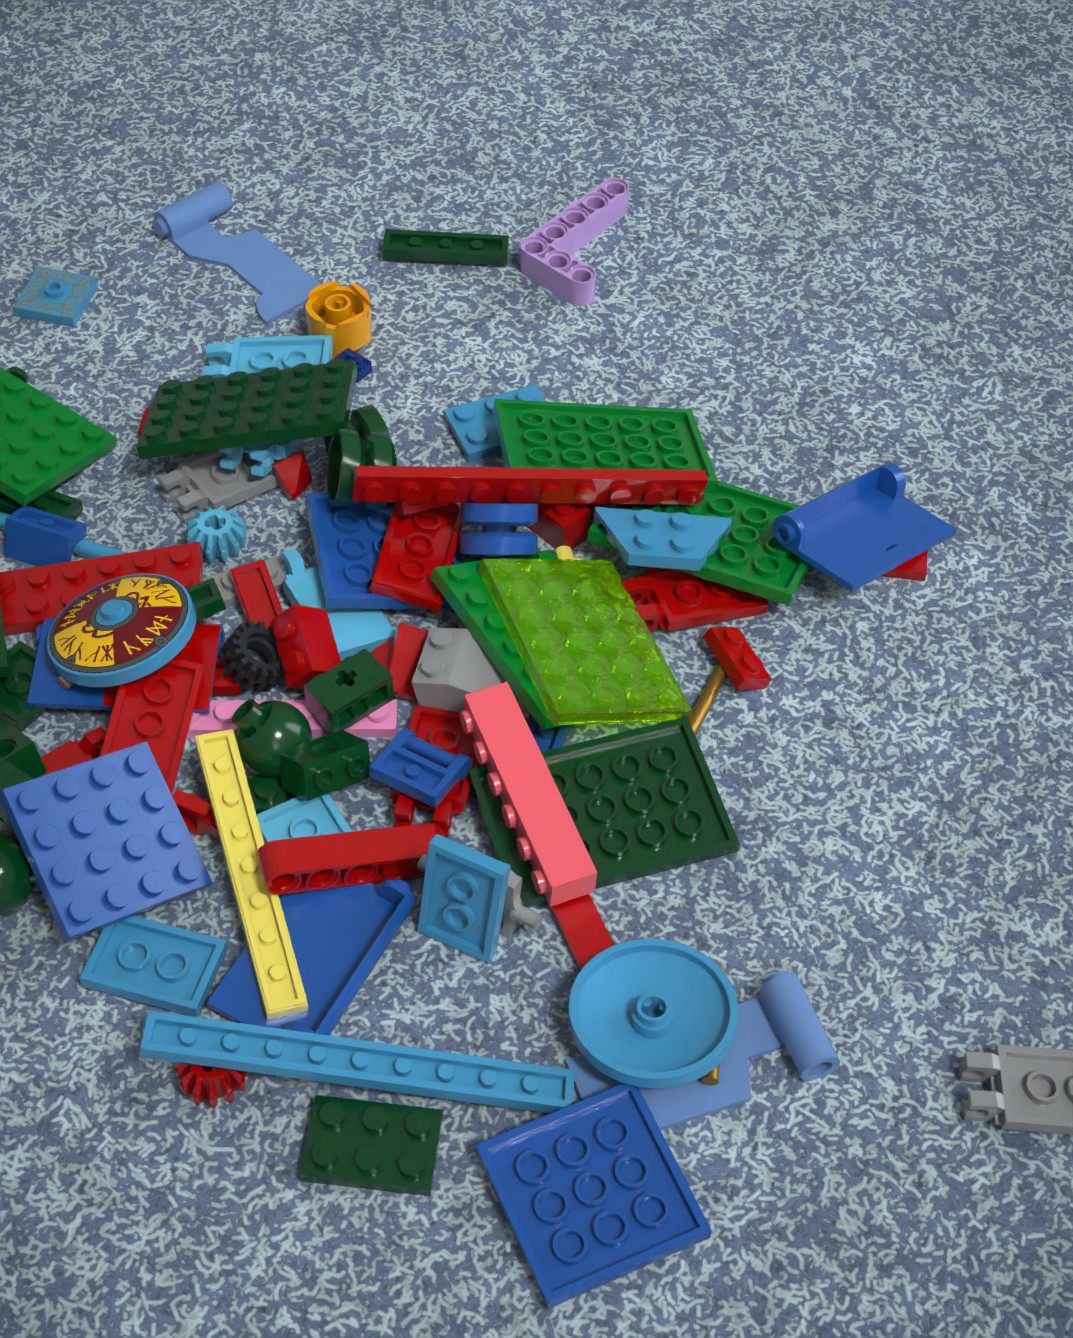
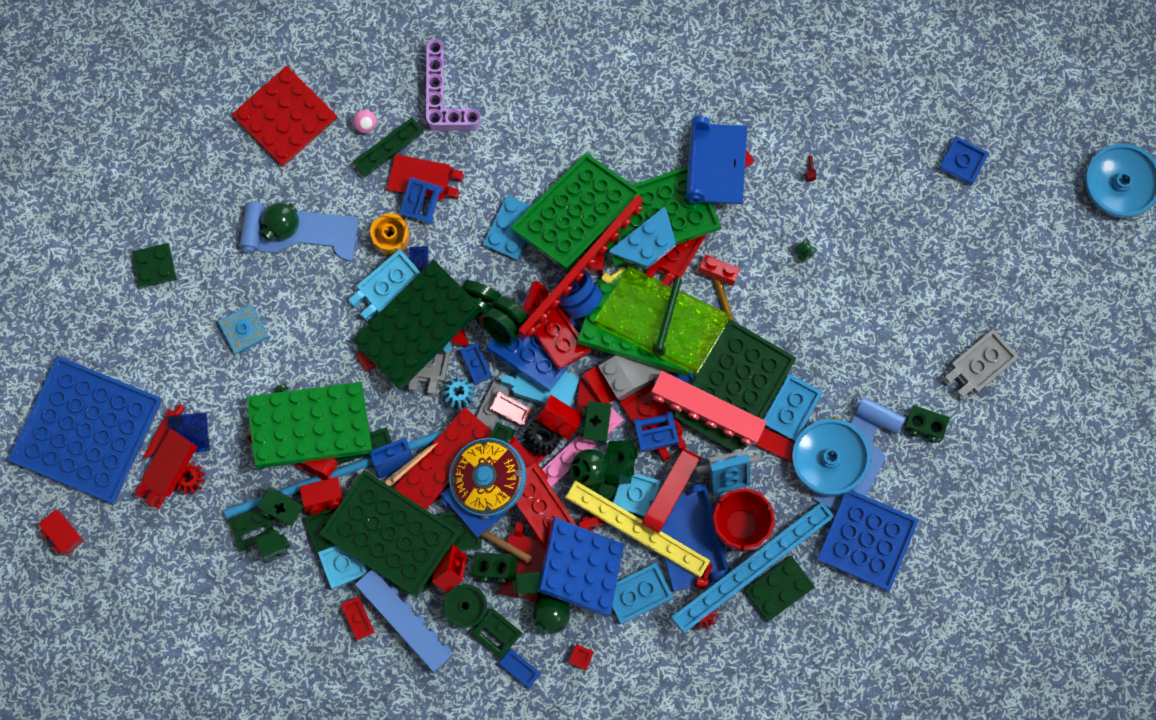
camera: 40 degrees left, 25 degrees up
(41, 558) = (398, 474): none -> light nougat bar
(43, 178) = (154, 265): none -> dark green plate
(49, 741) = (506, 546): none -> medium nougat bar
(227, 221) = (279, 221): none -> dark green brick
(260, 1018) = (701, 583): none -> red hand
(278, 522) = (476, 363): none -> blue plate
(363, 150) = (284, 116): none -> red plate
(411, 980) = (743, 520): none -> red plate
(413, 306) = (415, 197): none -> blue plate
(447, 204) = (364, 121): none -> bright pink piece
(451, 304) = (424, 170): none -> red tile
(530, 642) = (659, 348): none -> dark green bar
(666, 904) = (792, 408): none -> dark azure plate
(876, 1097) = (927, 419): none -> dark green brick
(895, 724) = (805, 250): none -> dark green wheel
(999, 647) = (811, 174): none -> dark red hand

